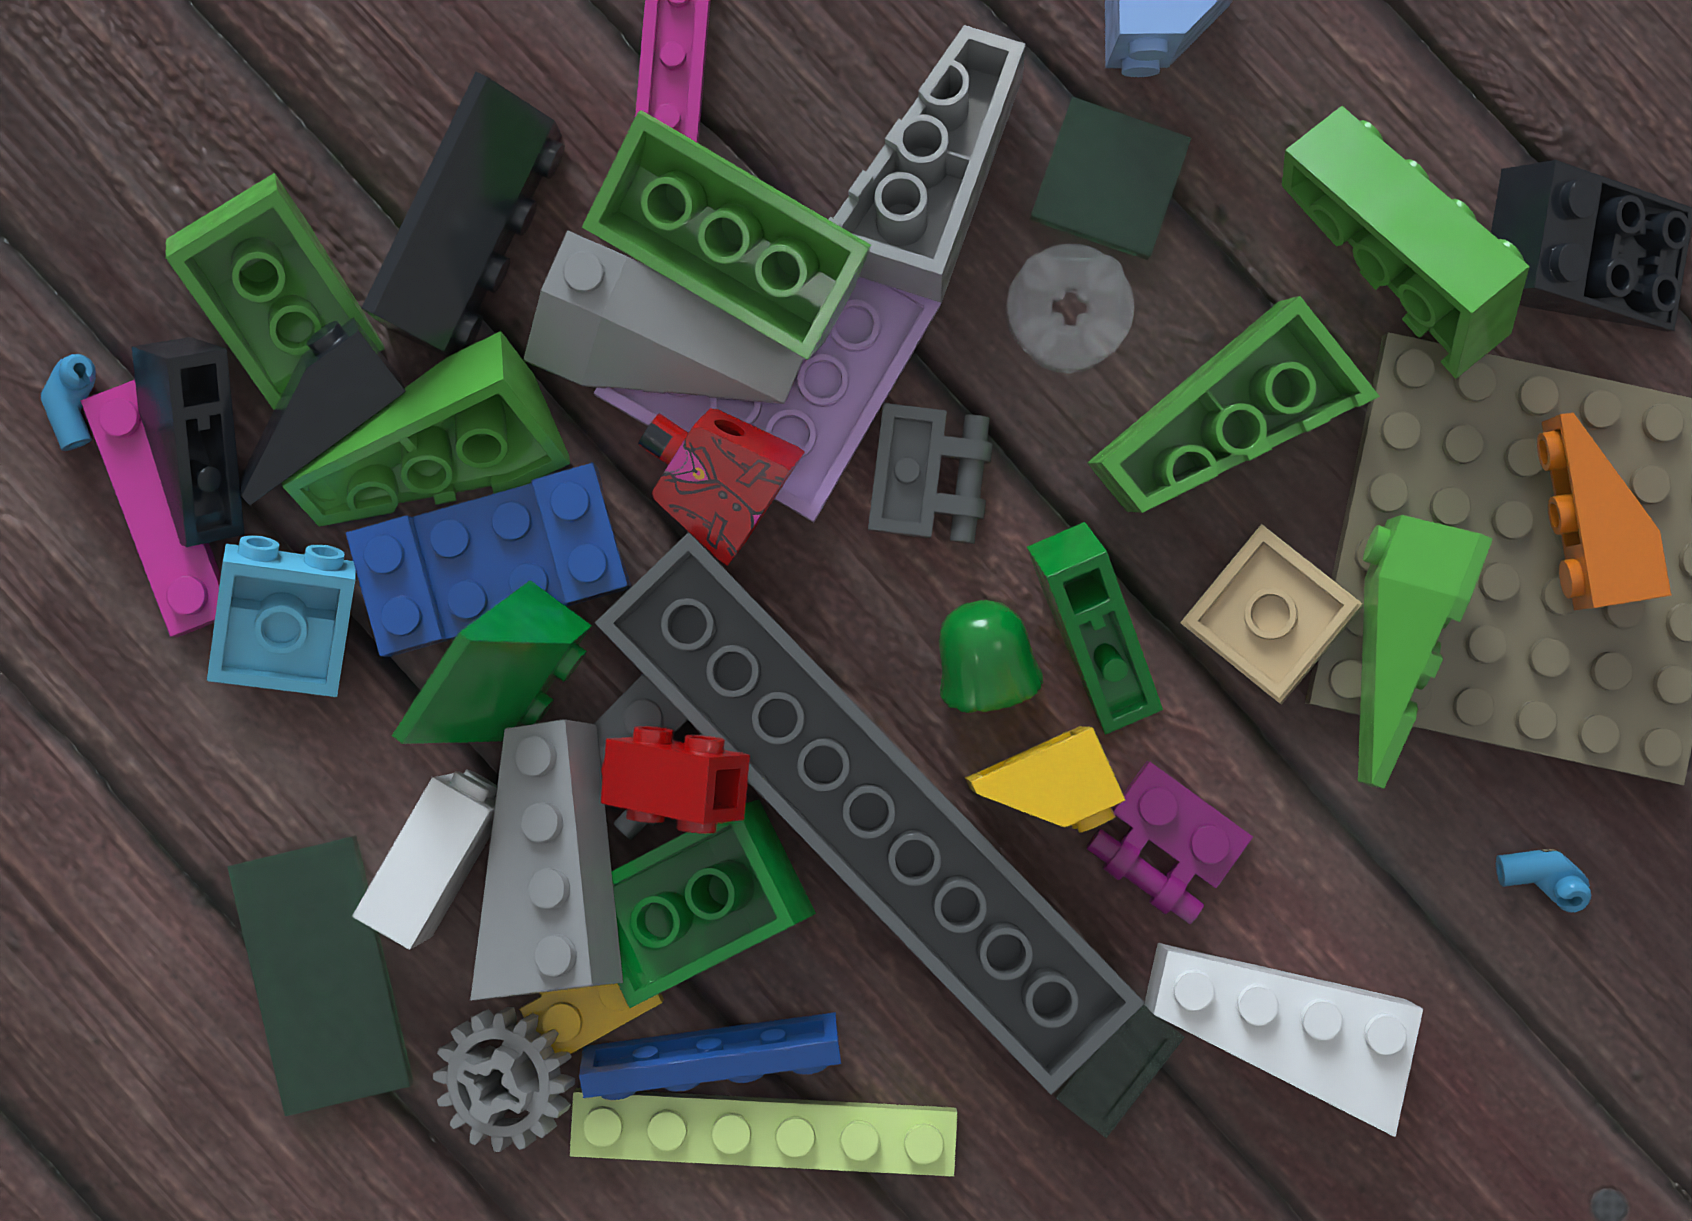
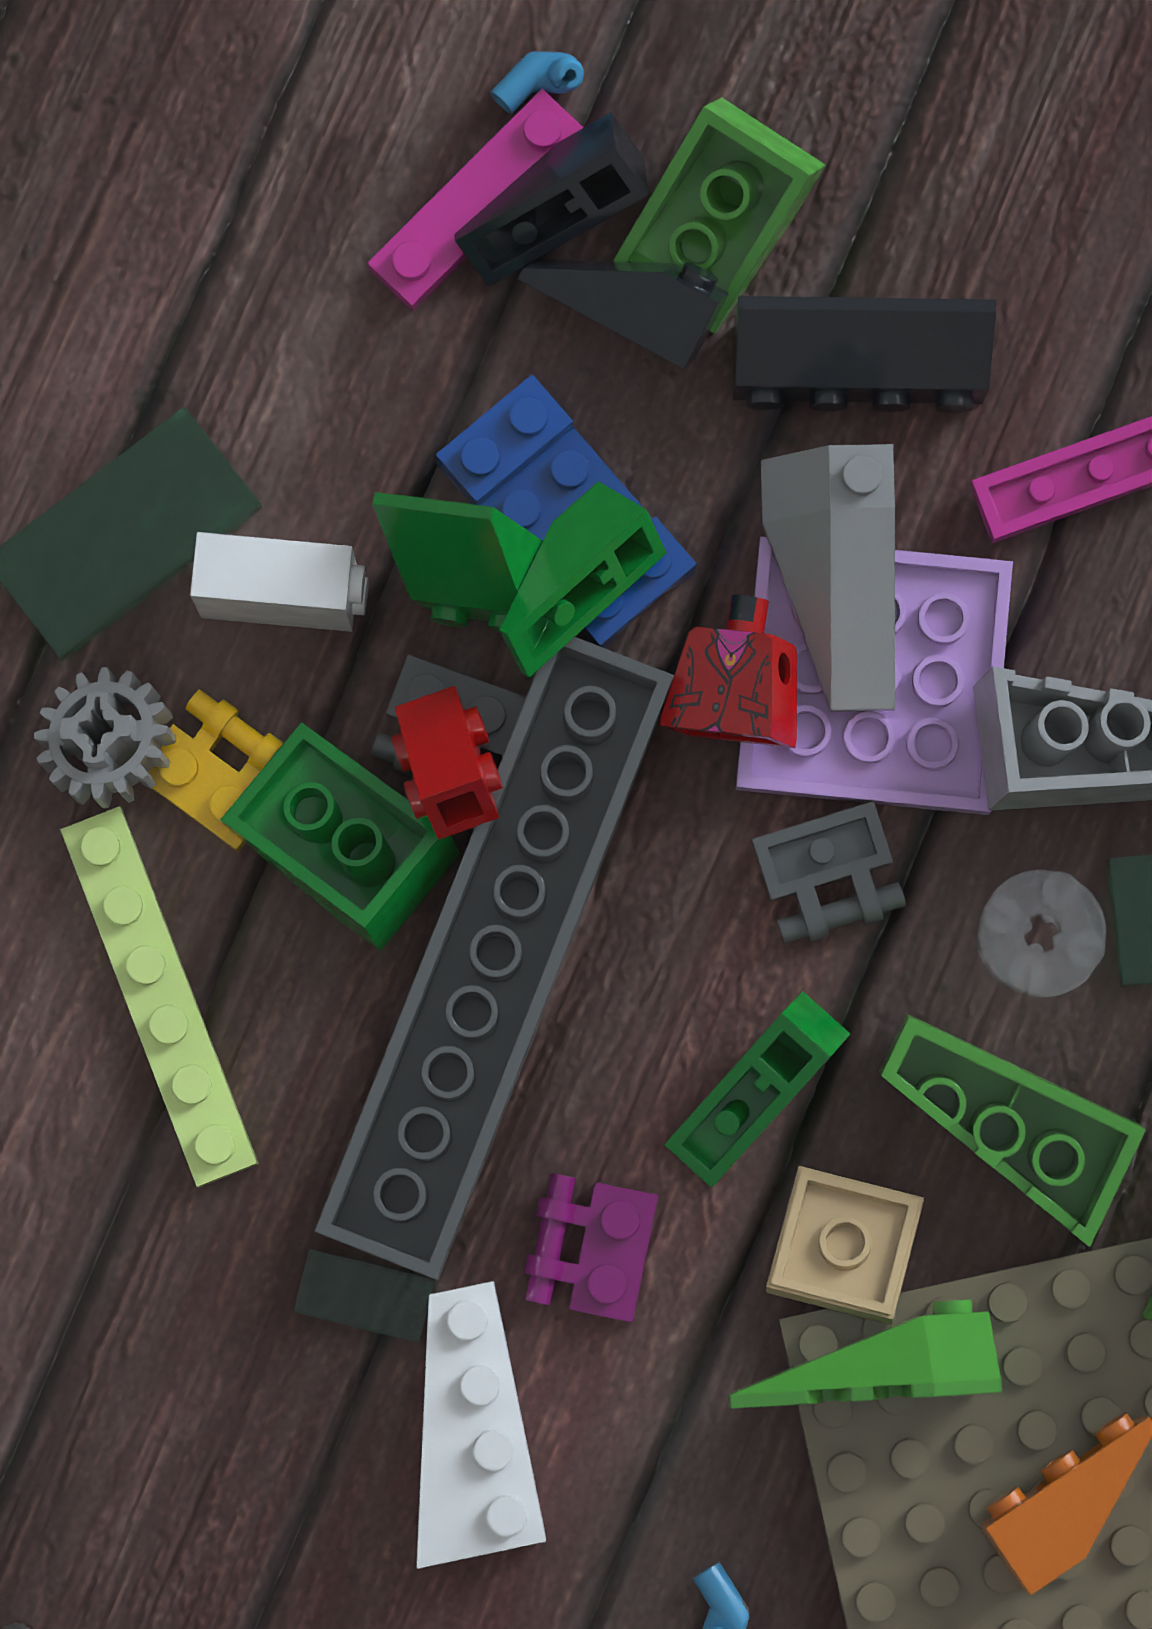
camera: 65 degrees right, 5 degrees down
(281, 617) = (430, 353): medium azure plate -> none
(452, 431) = (666, 426): bright green wedge -> none
(548, 869) = (313, 688): light grey wedge -> none
(552, 576) = (578, 571): none -> green slope
(709, 1055) = (219, 932): blue plate -> none
(727, 236) = (952, 588): bright green slope -> none
(986, 658) = (684, 1001): green hair -> none
(1056, 781) = (599, 1108): yellow slope -> none

